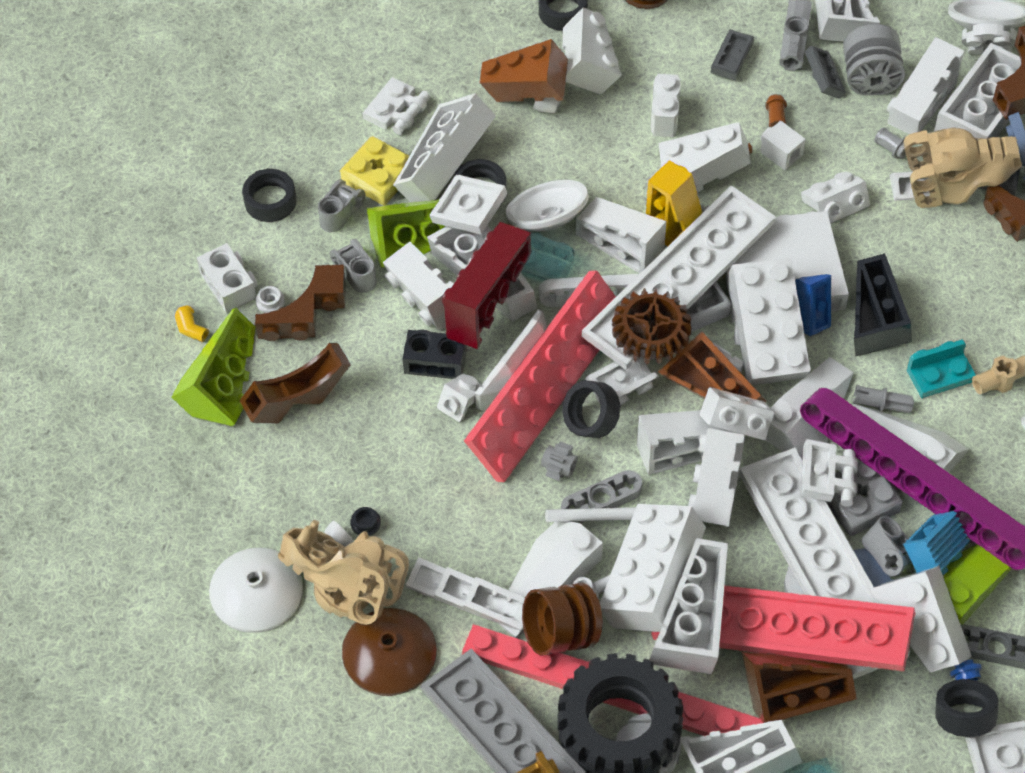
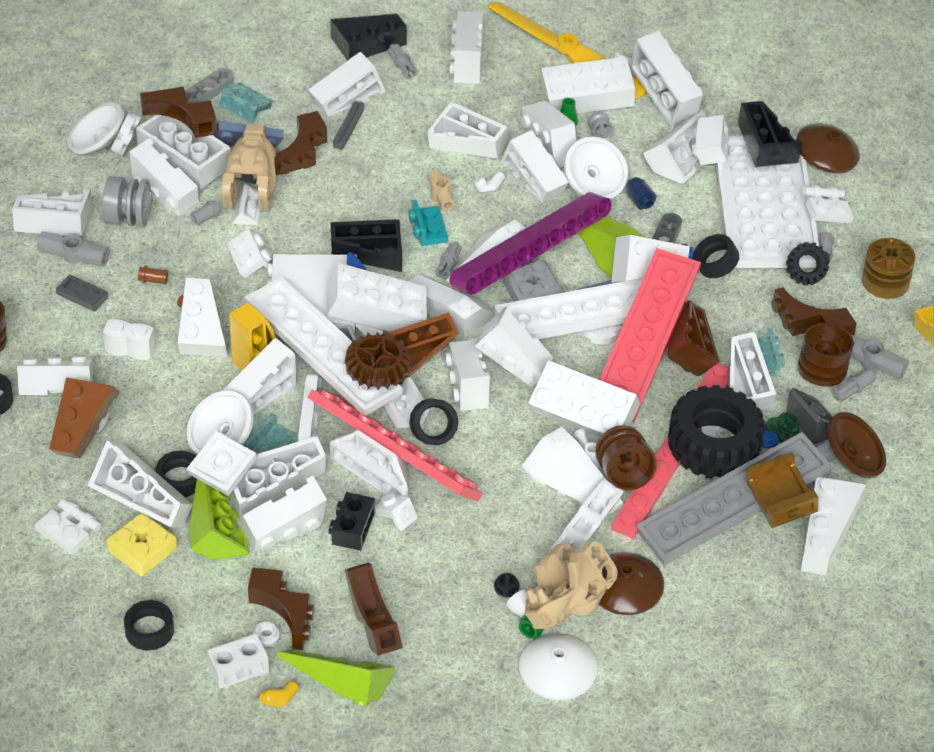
camera: 85 degrees left, 10 degrees down
(339, 205) = (175, 574): light grey piece -> none
(357, 265) = (242, 565): light grey piece -> none
(485, 283) = (313, 455): dark red wedge -> none
(559, 461) = (474, 452): light grey gear -> none
(592, 514) = (527, 431): white bar -> none
(606, 486) = (510, 427): light grey beam -> none
(694, 618) = (646, 374): white wedge -> none
(737, 413) = (466, 325): white brick -> none
(782, 145) = (190, 268): white brick -> none
(819, 472) = (523, 287): white plate -> none
(825, 72) = (121, 239): dark grey plate -> none
(886, 546) = (582, 274): light grey piece -> none
(937, 542) = (587, 245): dark azure brick -> none

